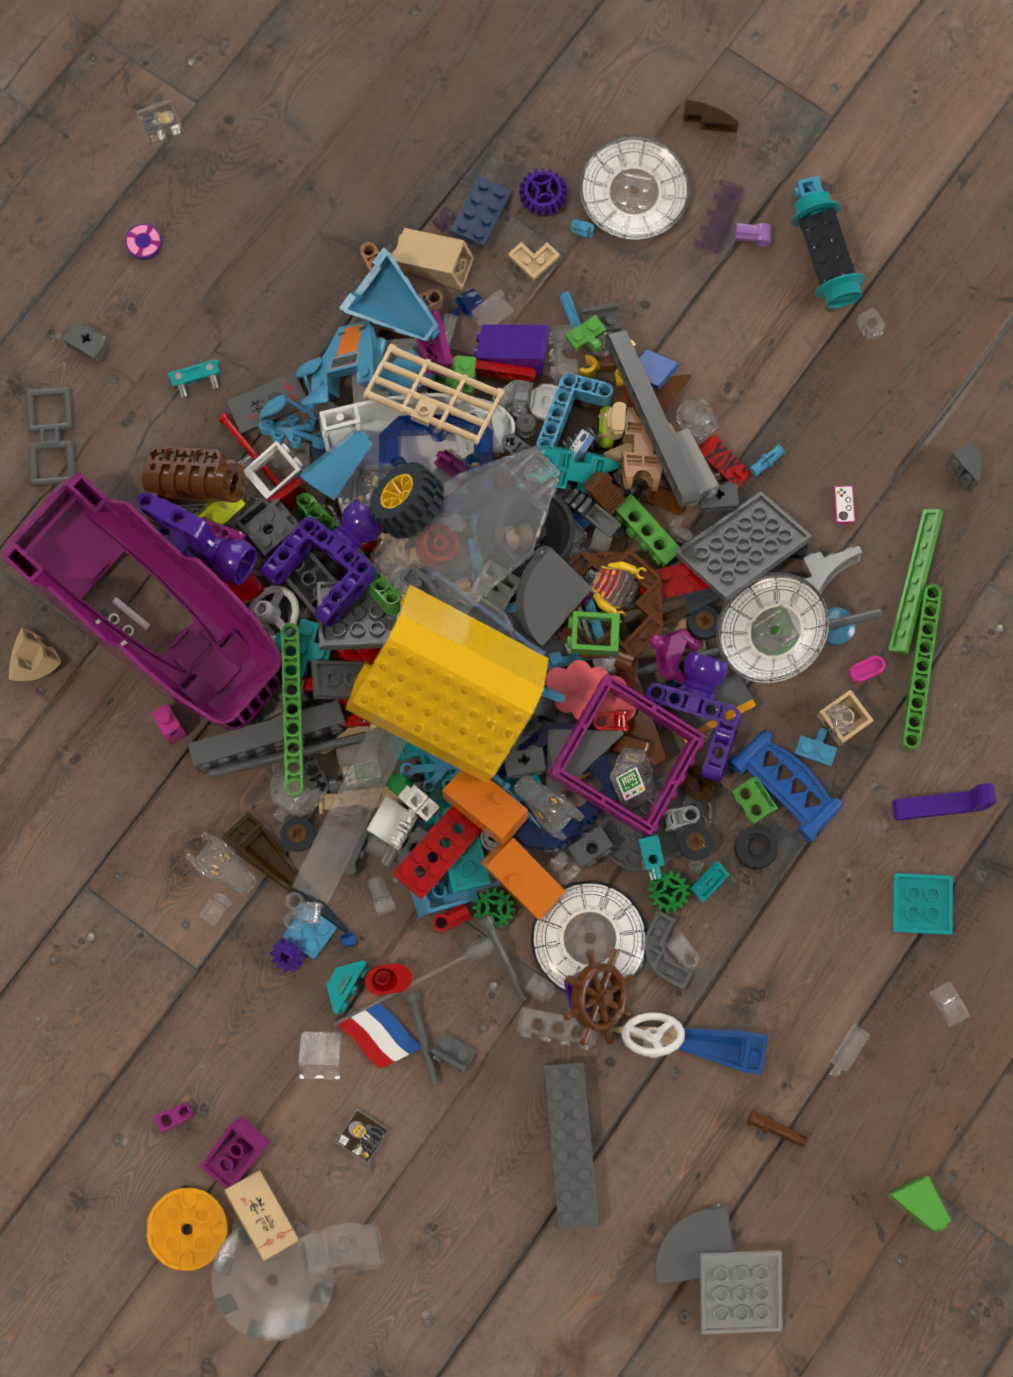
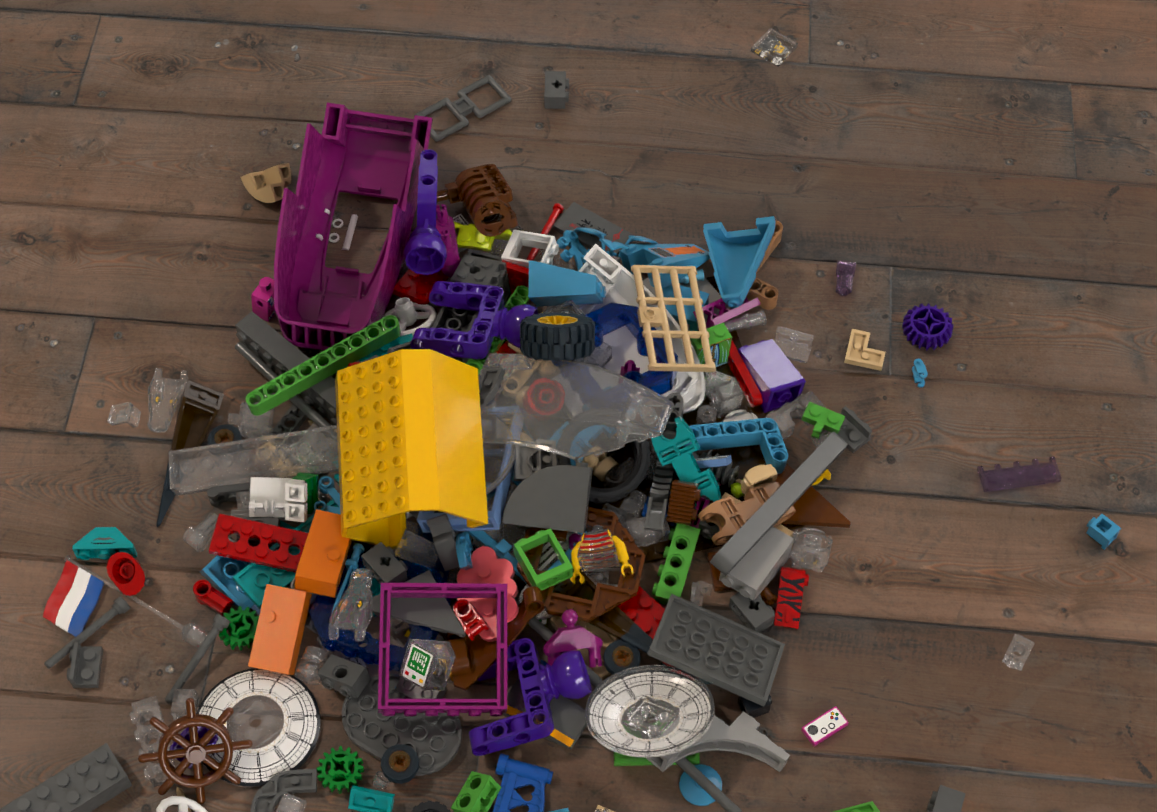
camera: 60 degrees right, 20 degrees down
(143, 241) = (667, 85): tile -> none
(195, 374) = (581, 170): teal piece -> none
(286, 948) = (109, 487): dark purple gear -> none
(305, 912) = (151, 473): clear piece -> none
(311, 936) = (141, 496): dark azure plate -> none
(320, 1055) = (28, 558): clear bracket -> none
(348, 939) = (149, 528): blue hinge -> none
(434, 257) = (805, 278): tan slope -> none
(467, 302) = (784, 320): clear blue piece -> none
(480, 212) = (872, 289): dark blue plate -> none
(570, 309) = (841, 400): dark azure axle -> none
(604, 364) = (801, 447): piece -> none
(640, 164) = (993, 367): clear dish -> none
(650, 846) = (363, 726): teal torso -> none
(657, 368) = (833, 492): tile -> none
(679, 819) = (414, 734): light grey piece -> none
(698, 786) = (449, 732): dark brown plate -> none
(709, 117) = (1101, 414): dark brown slope -> none
(759, 234) = (1026, 512): medium lavender piece -> none
(767, 460) = (818, 634): dark azure pin -> none
(827, 249) = (1056, 571): brick -> none

